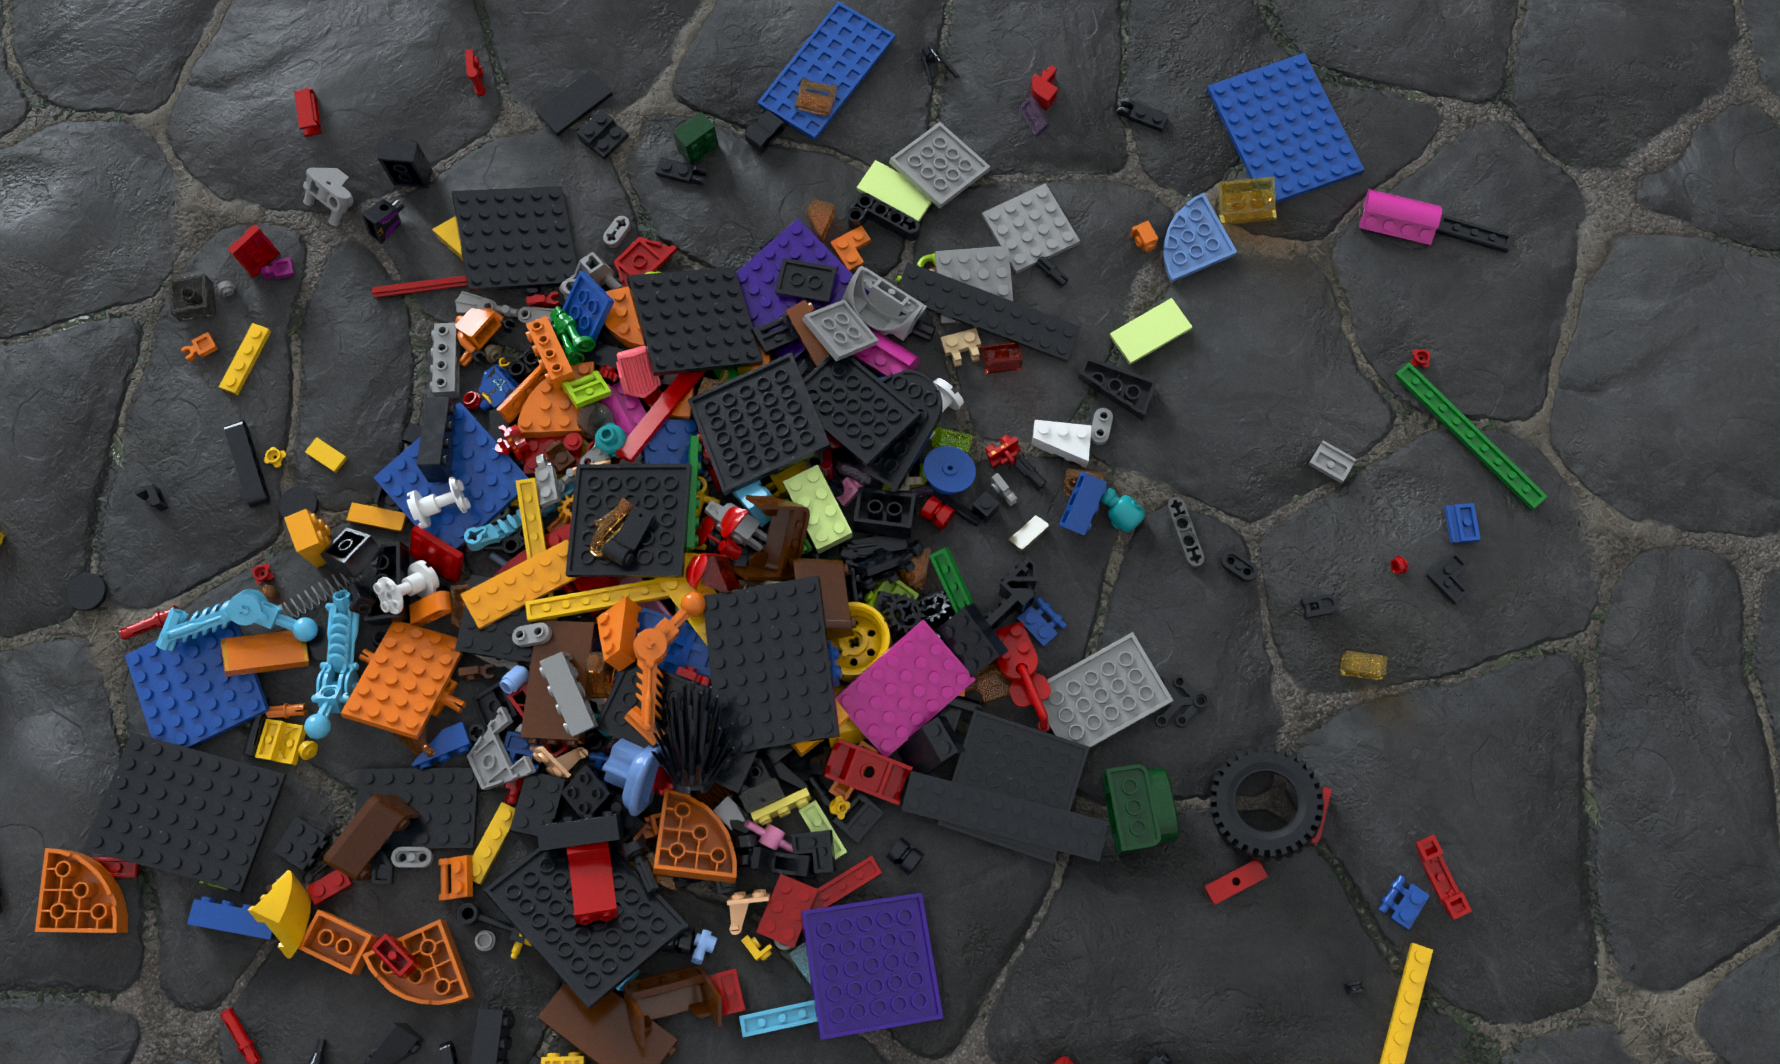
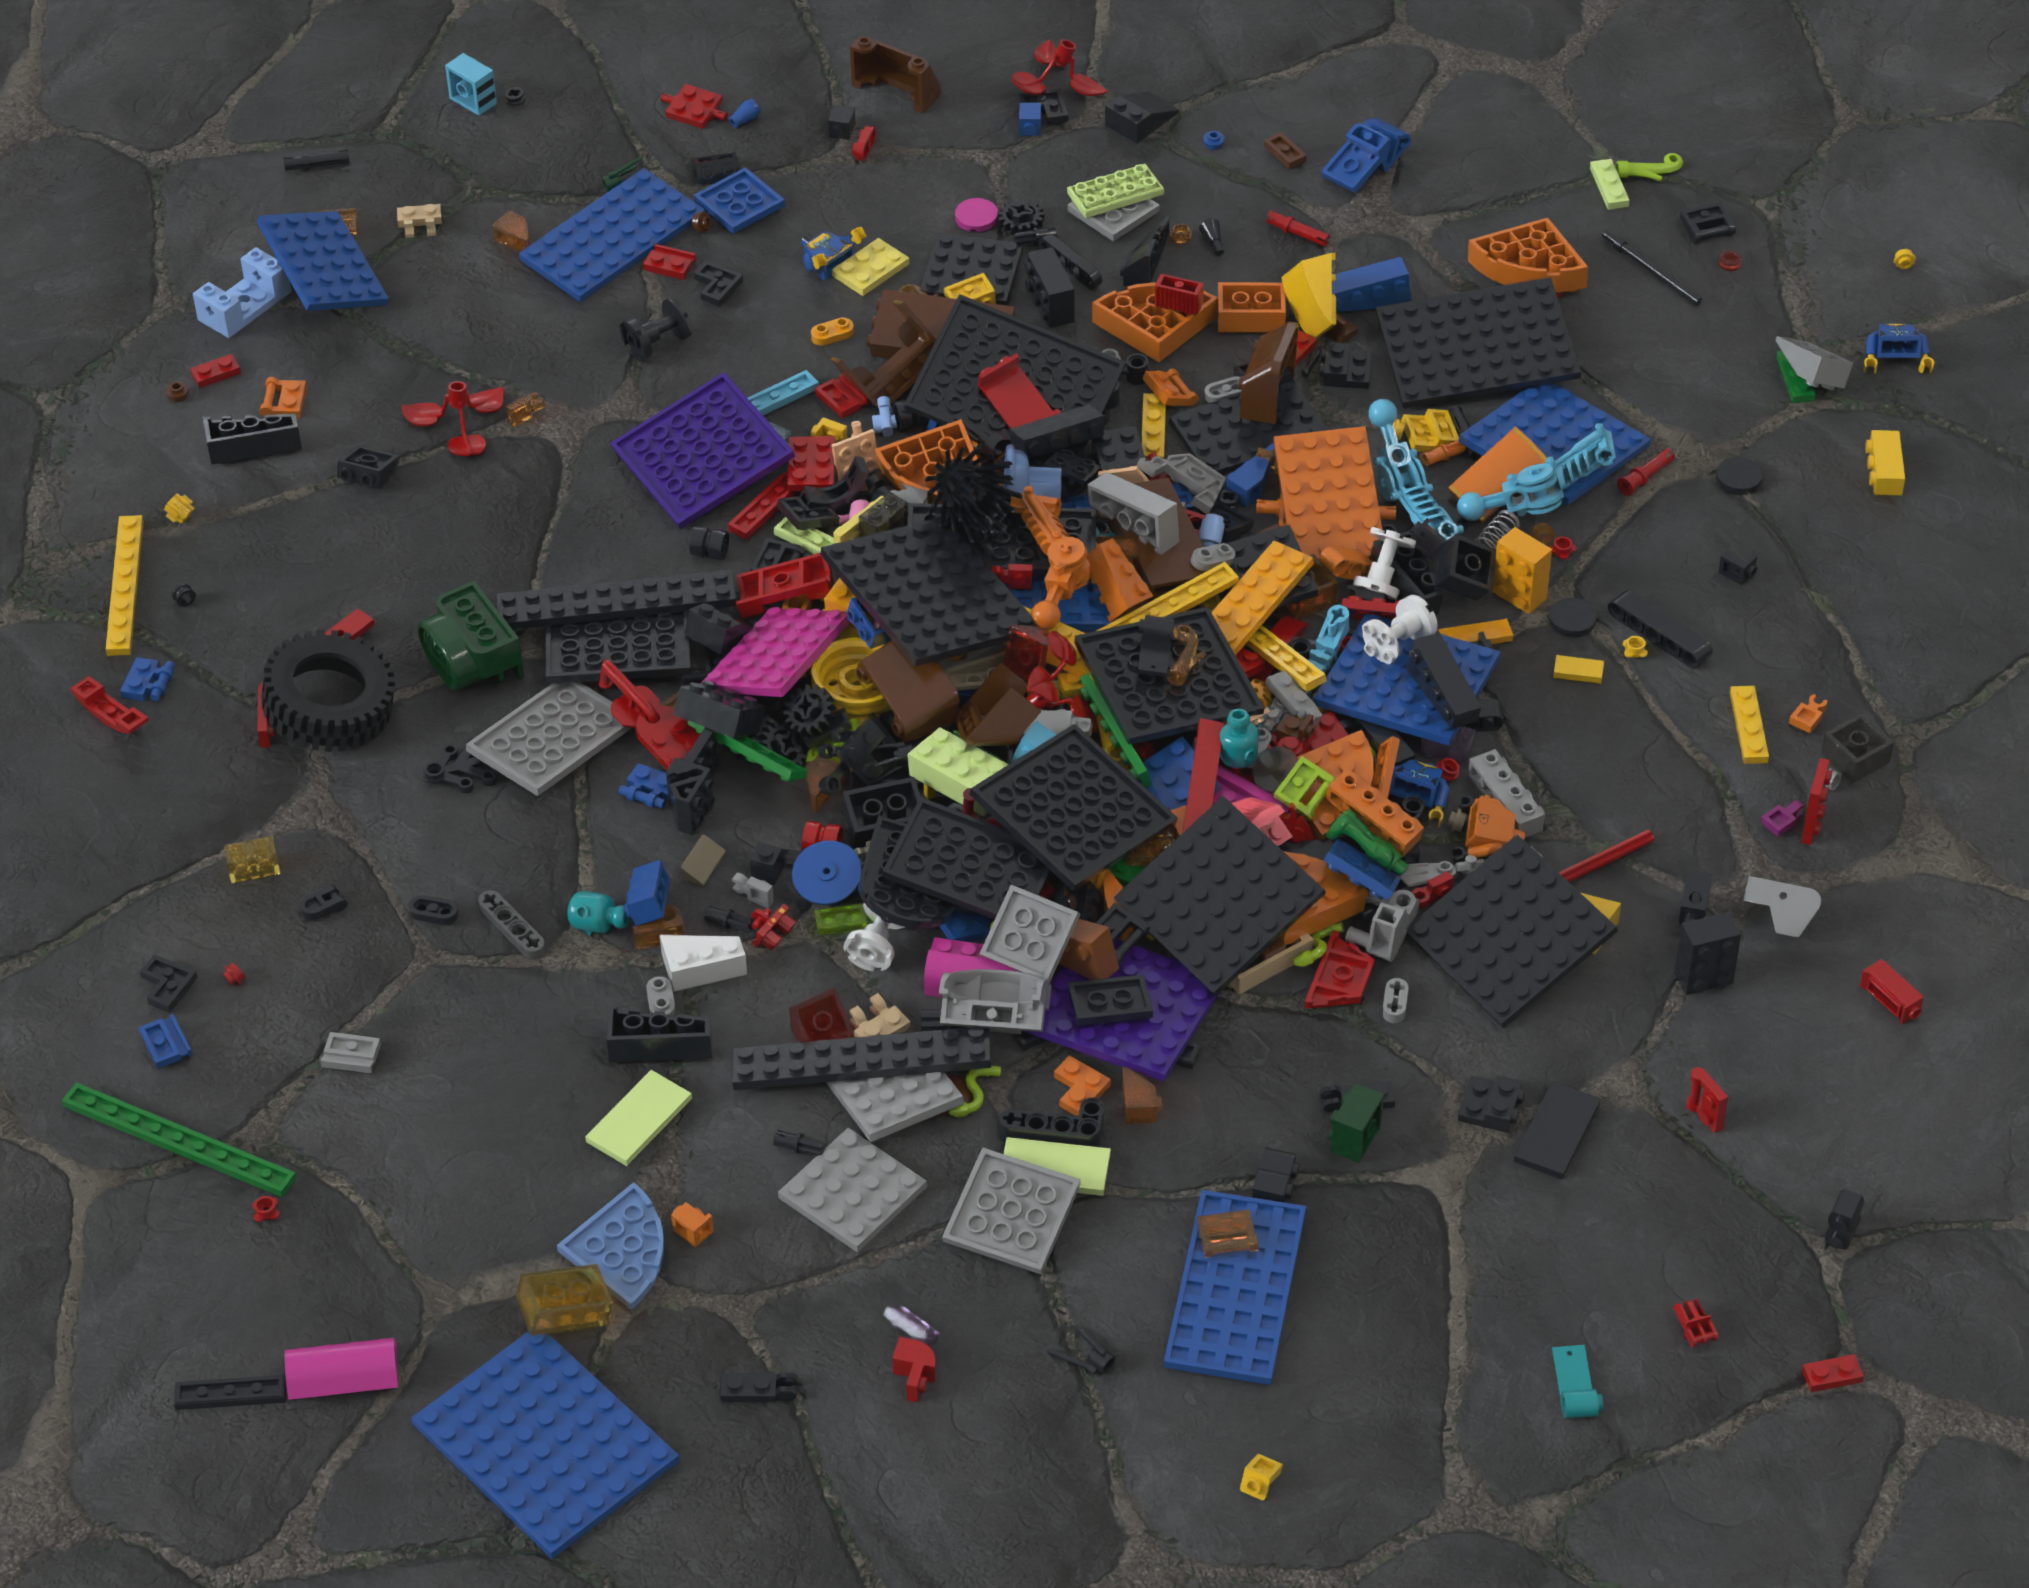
camera: 155 degrees right, 25 degrees down
(508, 444) = (1358, 716): red hips -> none
(835, 806) = (799, 551): yellow plate -> none

